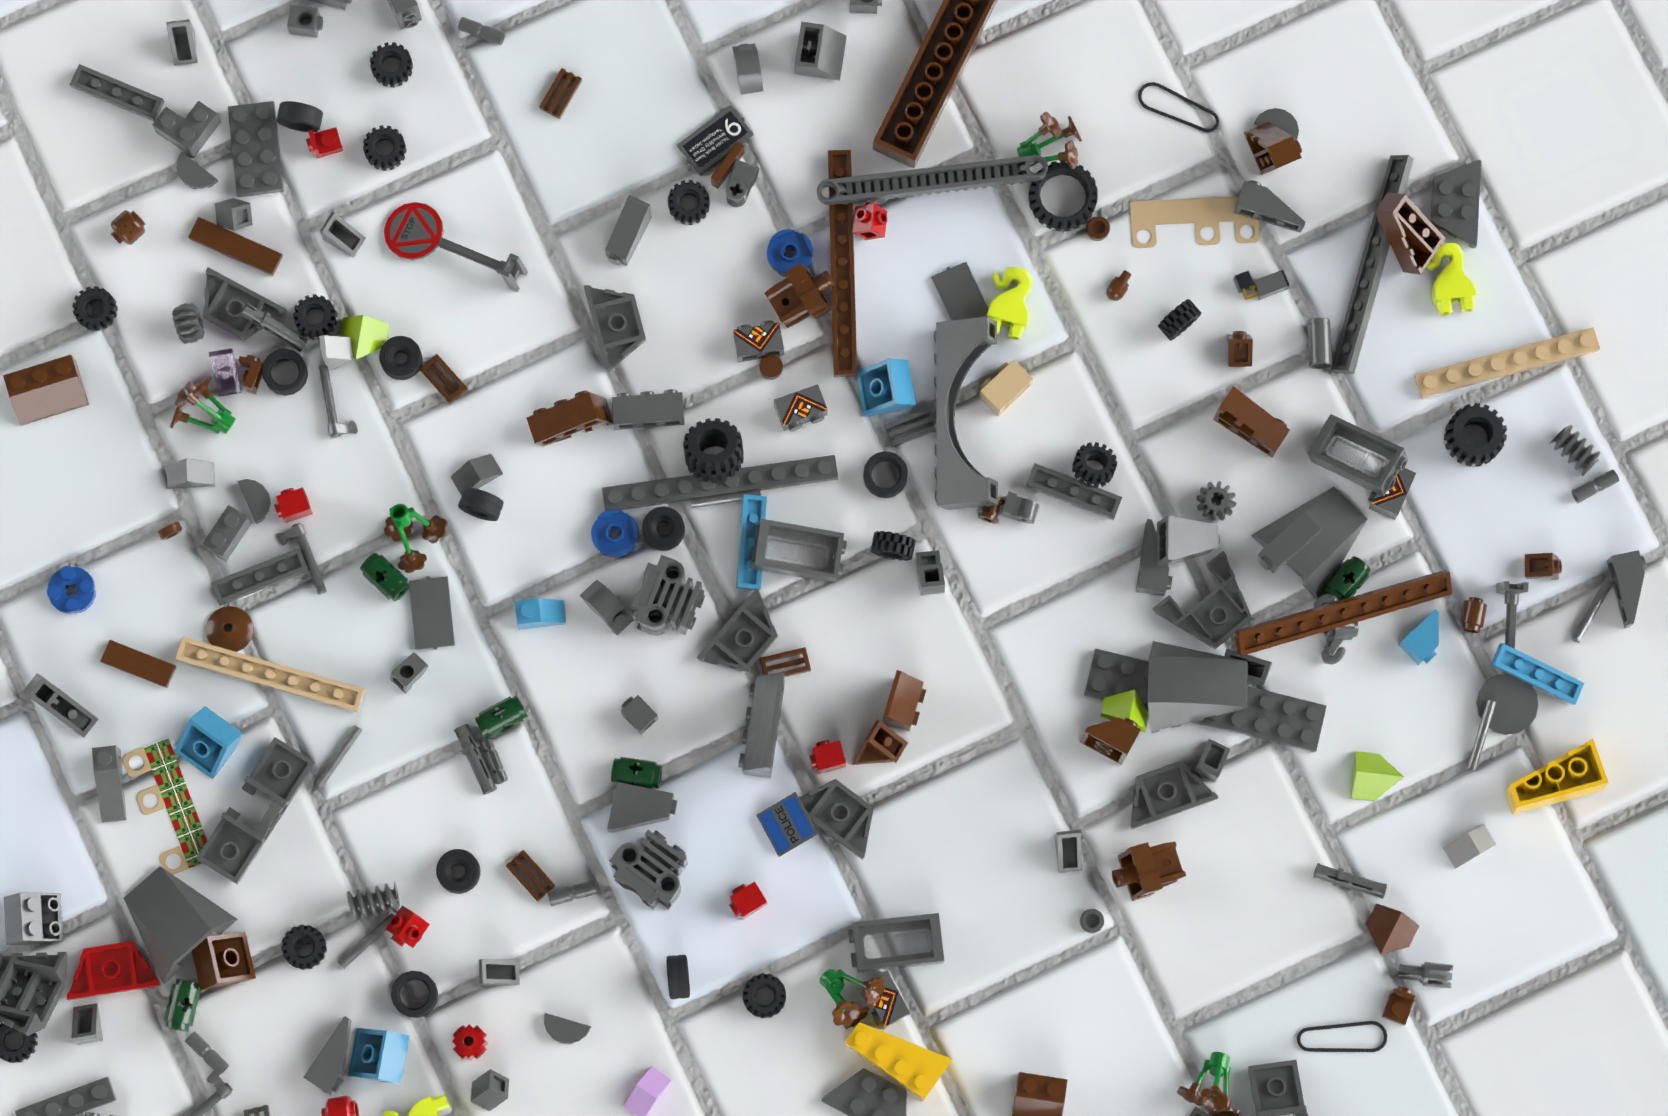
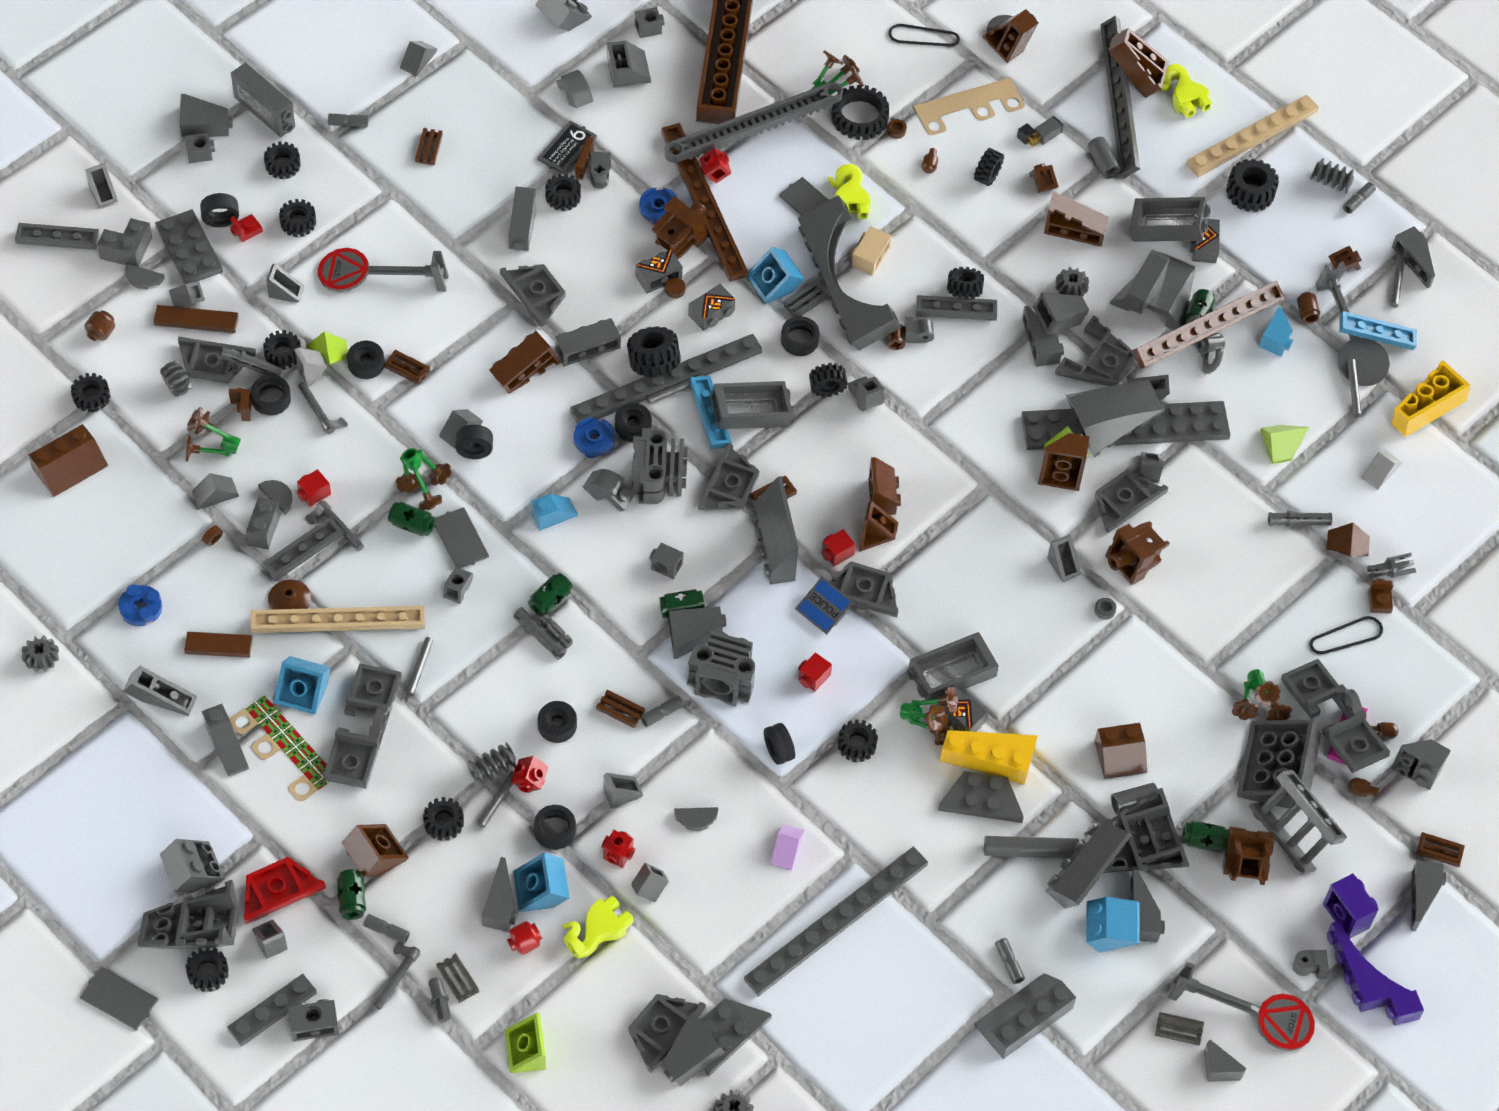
camera: 20 degrees left, 20 degrees down
(173, 919) = (318, 829): dark grey wedge -> none
(225, 372) = (220, 406): clear purple slope -> none
(1263, 205) = (1018, 78): dark grey slope -> none
(1457, 202) = (1167, 40): dark grey wing -> none

